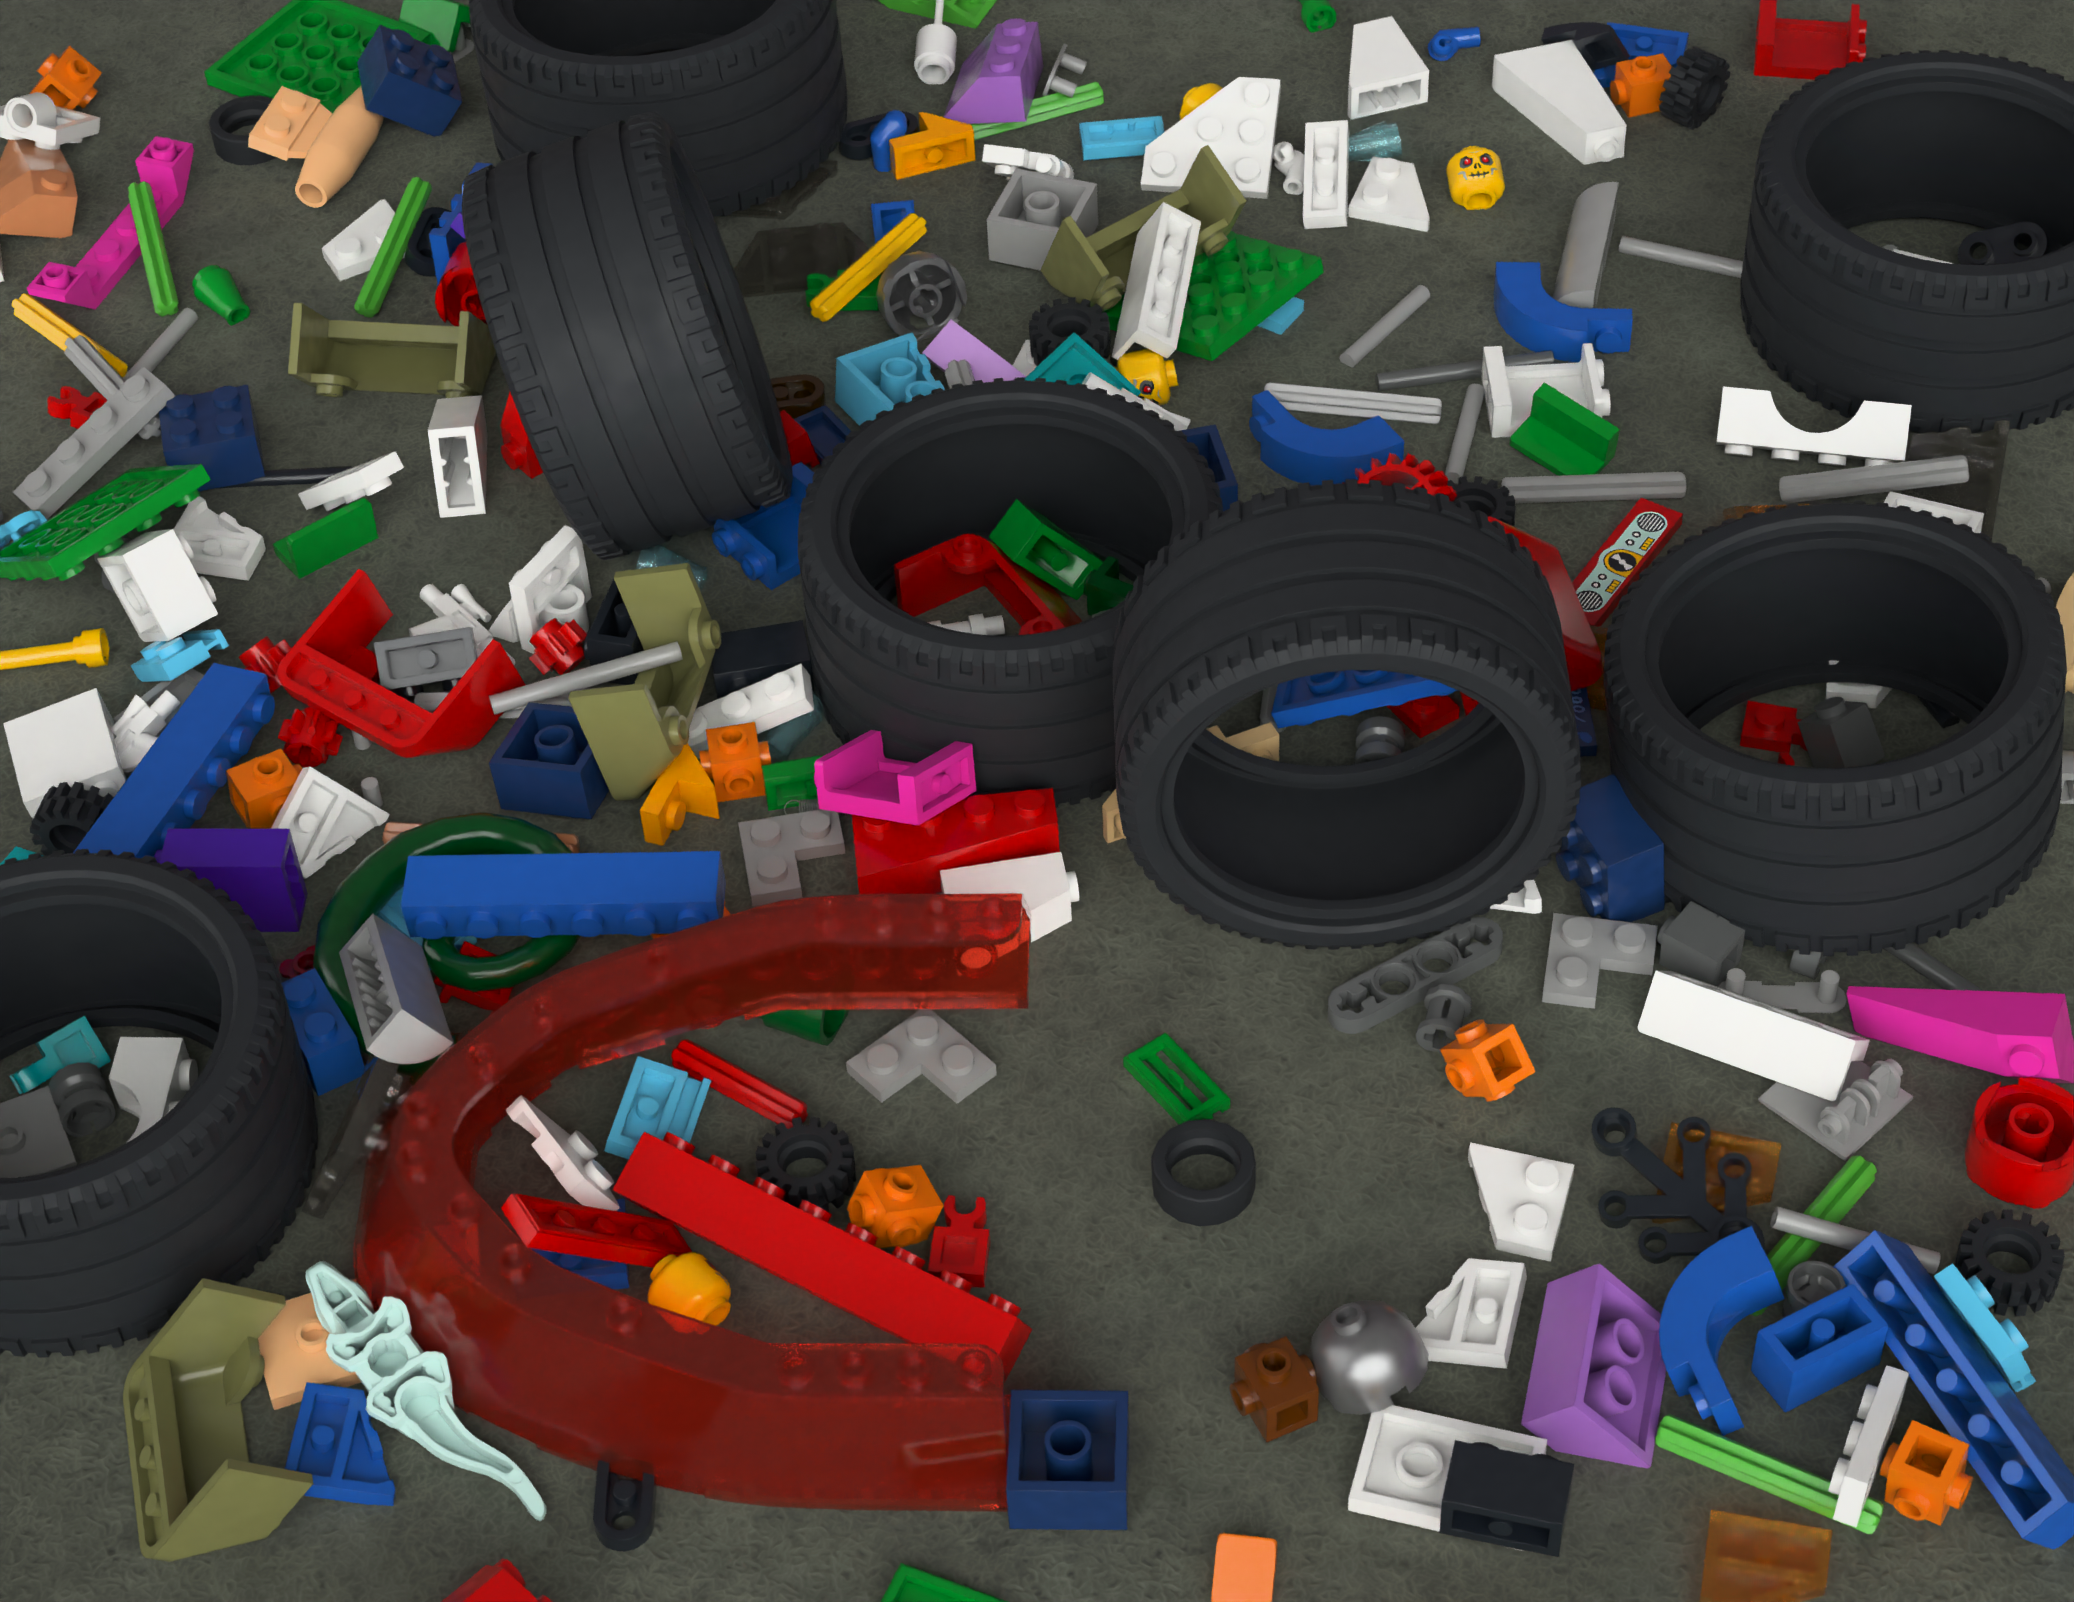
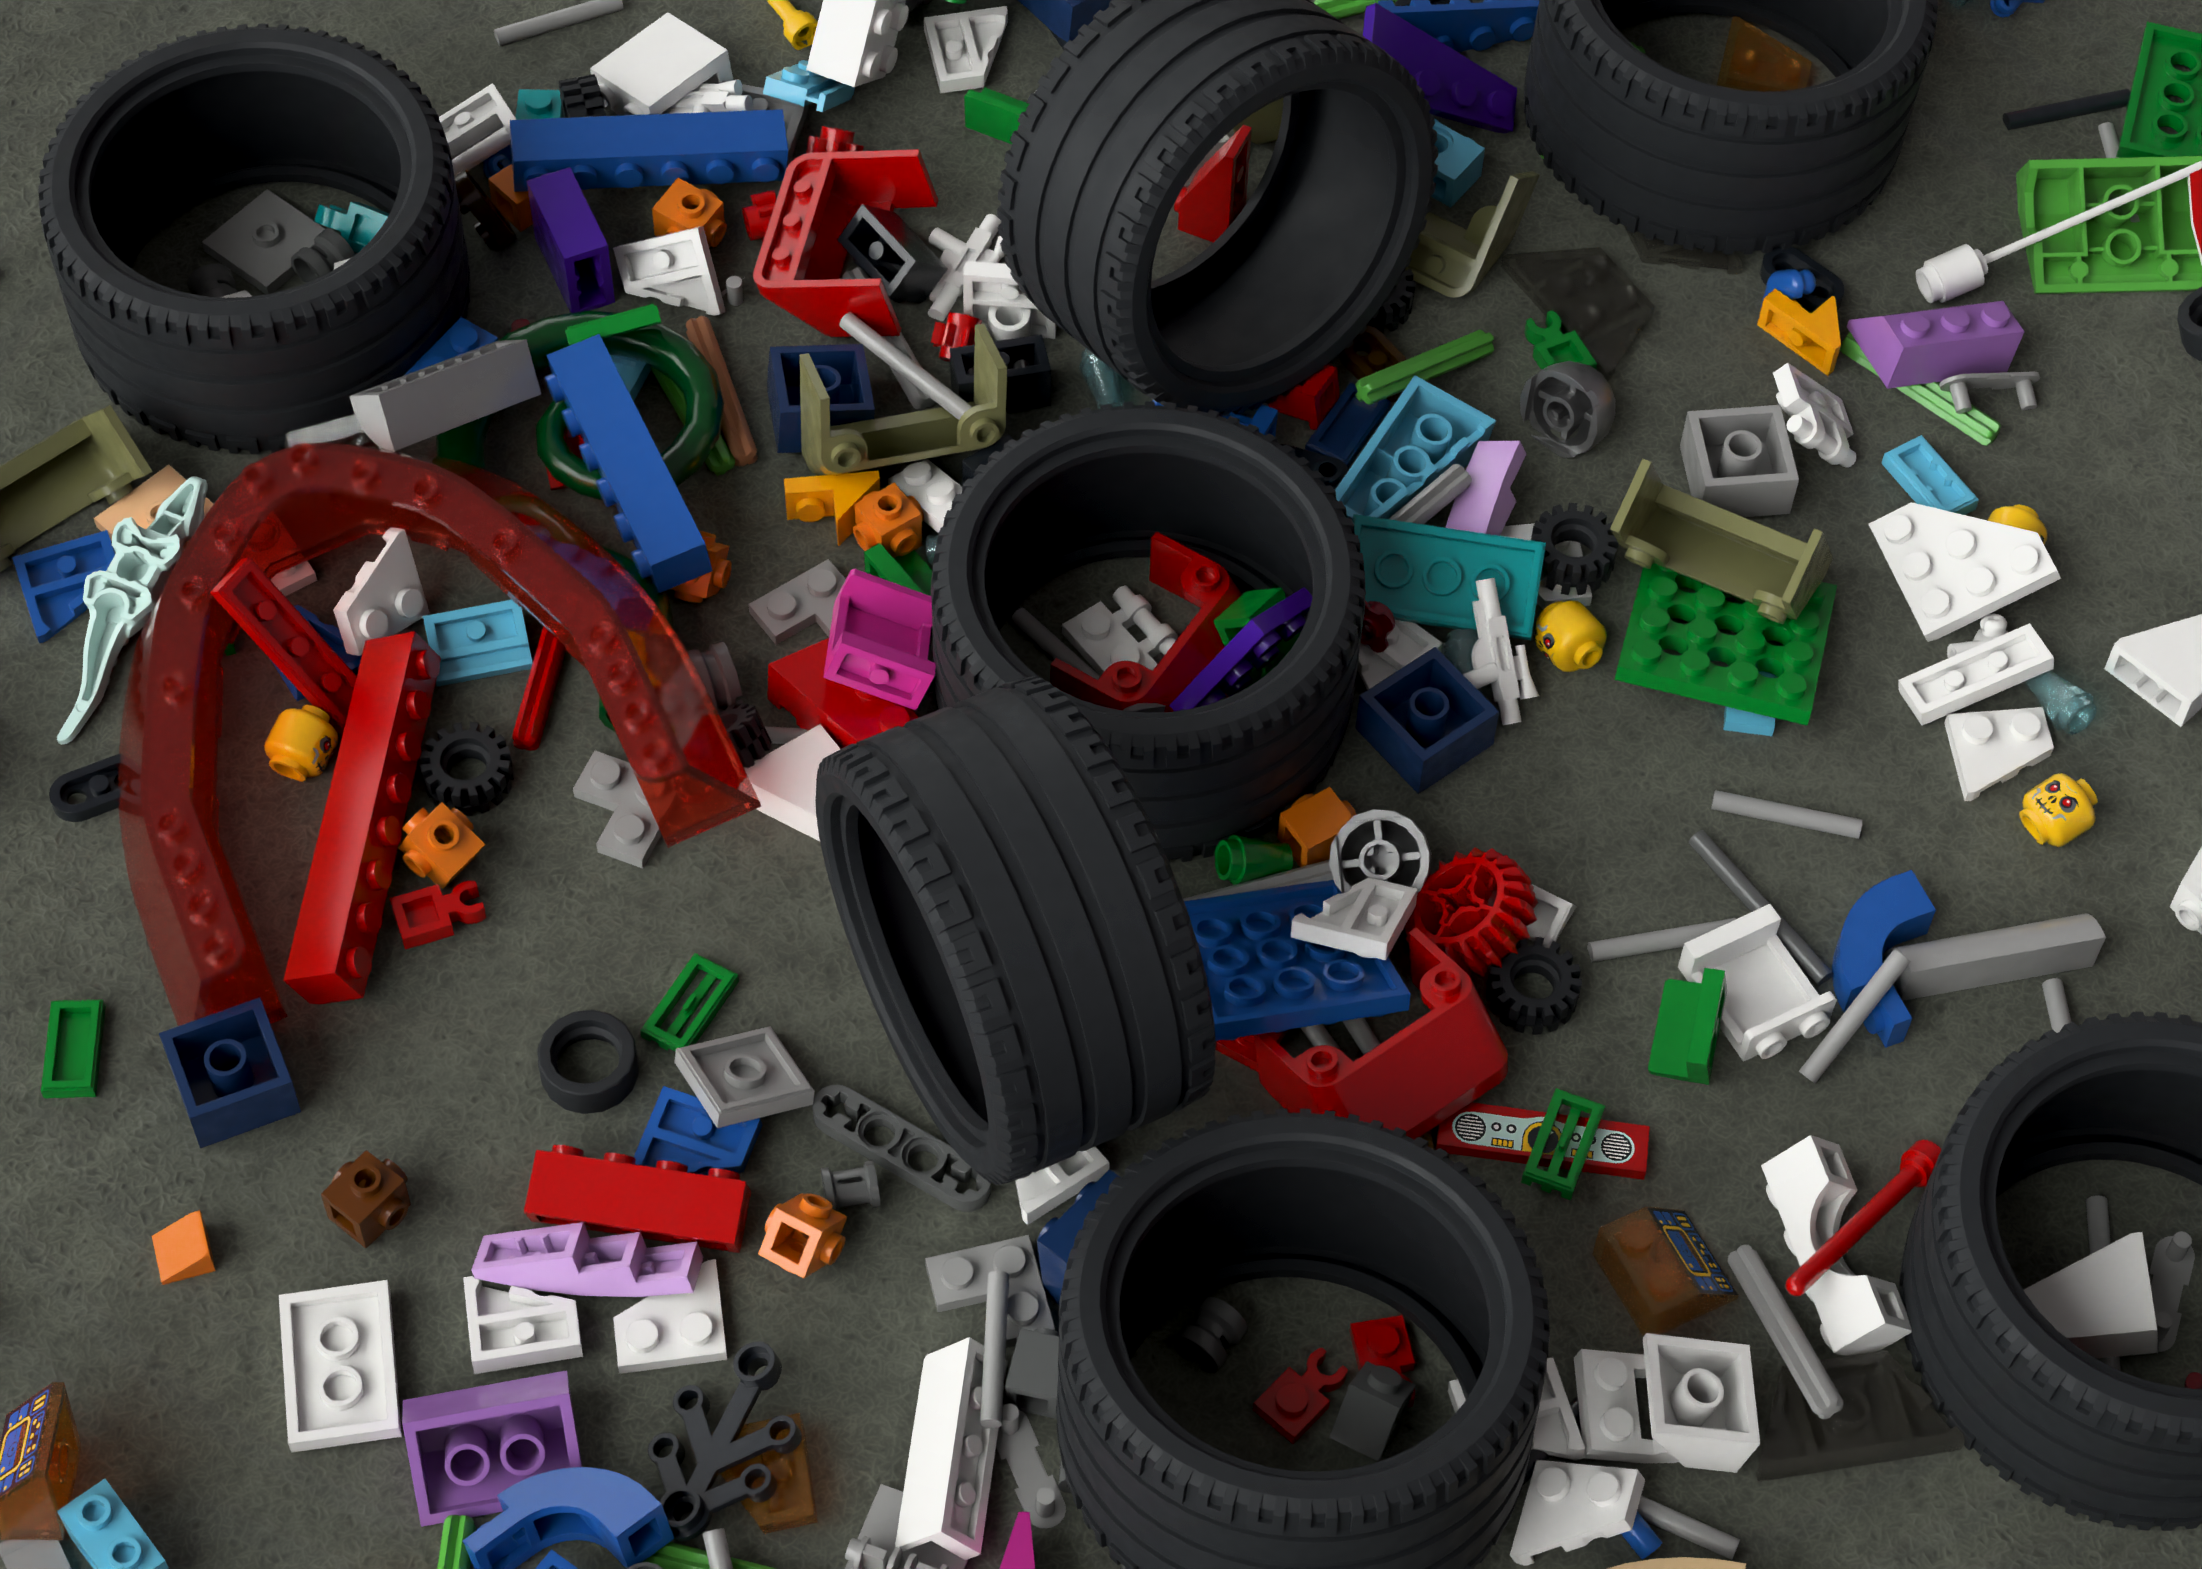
camera: 60 degrees right, 10 degrees up
(393, 852) = (614, 324): none -> green tile
(817, 362) = (1425, 366): none -> bright green axle
(868, 267) = (1583, 350): yellow axle -> none
(888, 215) = (1683, 345): blue slope -> none
(1085, 533) = (1250, 648): none -> dark purple plate
(1158, 282) = (1673, 588): white panel -> none
(1290, 1053) = (744, 1077): none -> light grey plate
(1317, 453) = (1548, 840): blue arch -> none
(1330, 1120) = (687, 1135): none -> blue wing
(1357, 403) = (1649, 827): light grey axle -> none
(1366, 1356) = (423, 1254): flat silver cylinder -> none
(1384, 1175) = (632, 1198): none -> red brick
(1439, 1228) = (573, 1263): none -> lavender slope
(1506, 1498) = (294, 1406): black brick -> none
(1596, 487) = (1645, 1081): light grey axle -> none
(1610, 340) = (1854, 1016): none -> light grey piece
(1626, 550) = (1550, 1179): none -> green tile
(1671, 961) = (994, 1349): none -> light grey bar
(1756, 363) = (1915, 1171): none -> red piece

